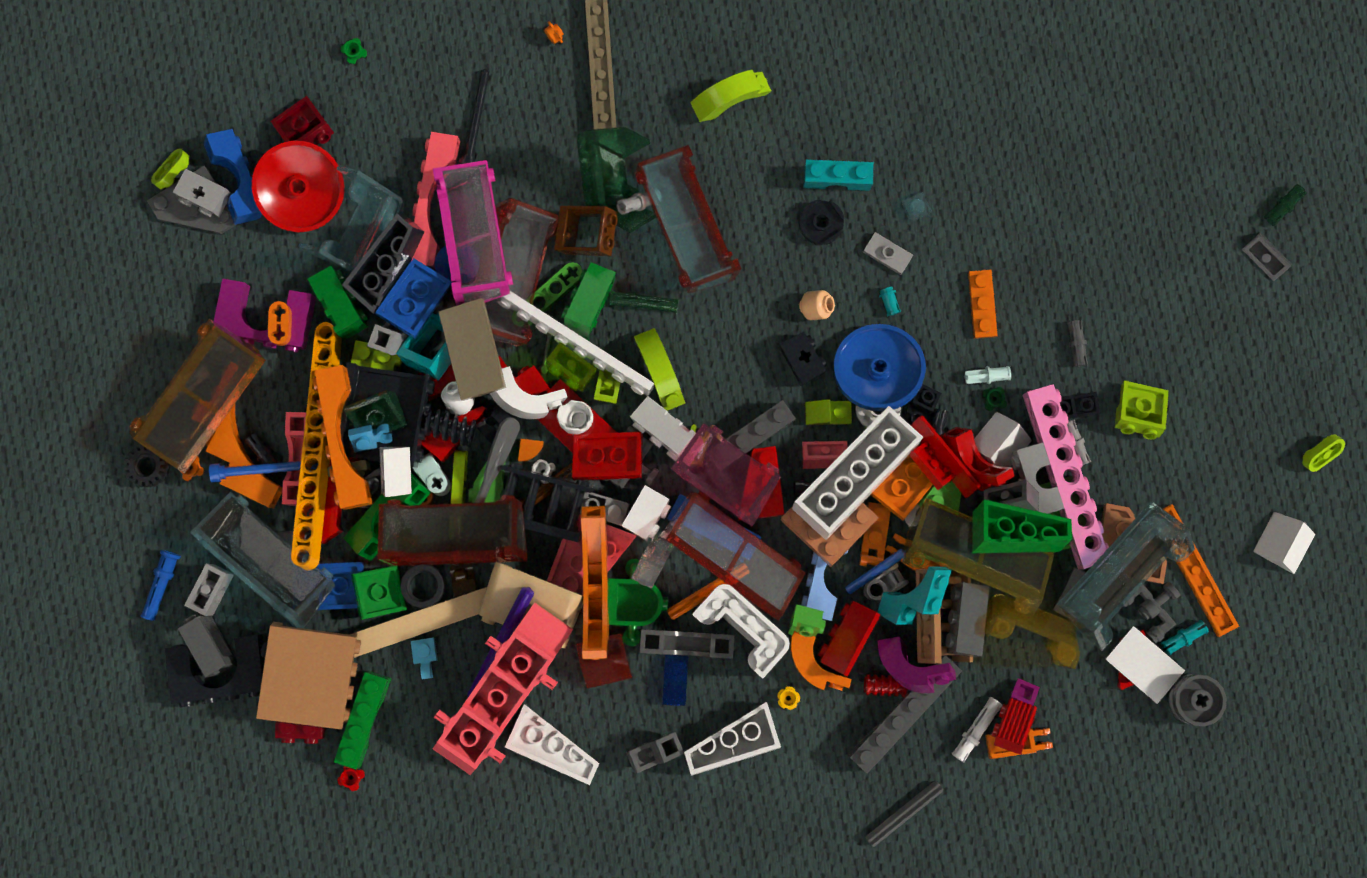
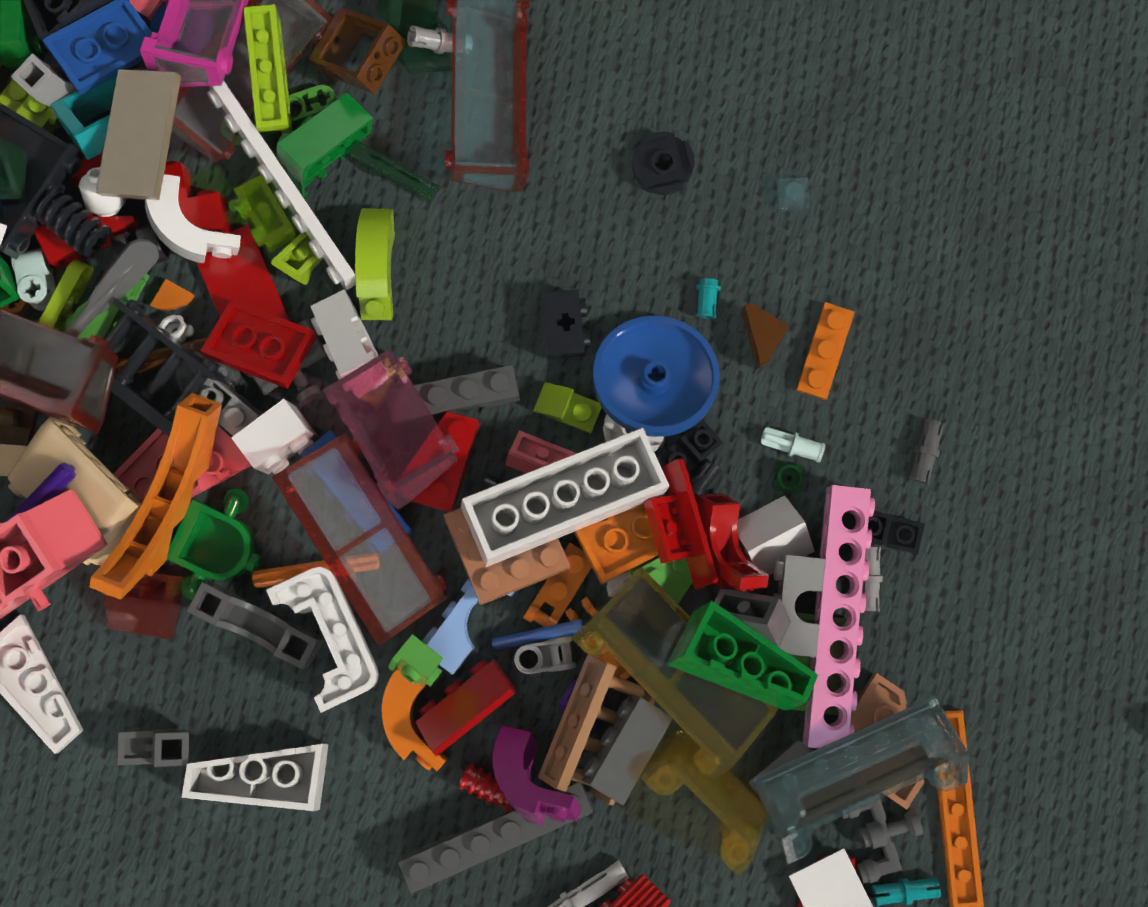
camera: 25 degrees right, 0 degrees up
(532, 269) = (268, 69): none -> lime fence
(575, 417) = (240, 278): white hair -> none
(652, 561) = (252, 503): clear brick -> none
(675, 680) = (224, 666): clear blue slope -> none
(789, 704) = (350, 753): yellow plate -> none
(817, 305) = (610, 264): light nougat head -> none
(825, 173) = (693, 102): teal arch -> none
(888, 253) = (731, 237): light grey plate -> none
(925, 598) = (575, 699): teal arch -> none
(938, 309) = (763, 333): none -> reddish brown slope
(1025, 692) = (665, 874): magenta plate -> none
(1142, 410) = (974, 572): lime plate -> none
(1284, 541) = (1090, 822): white slope -> none

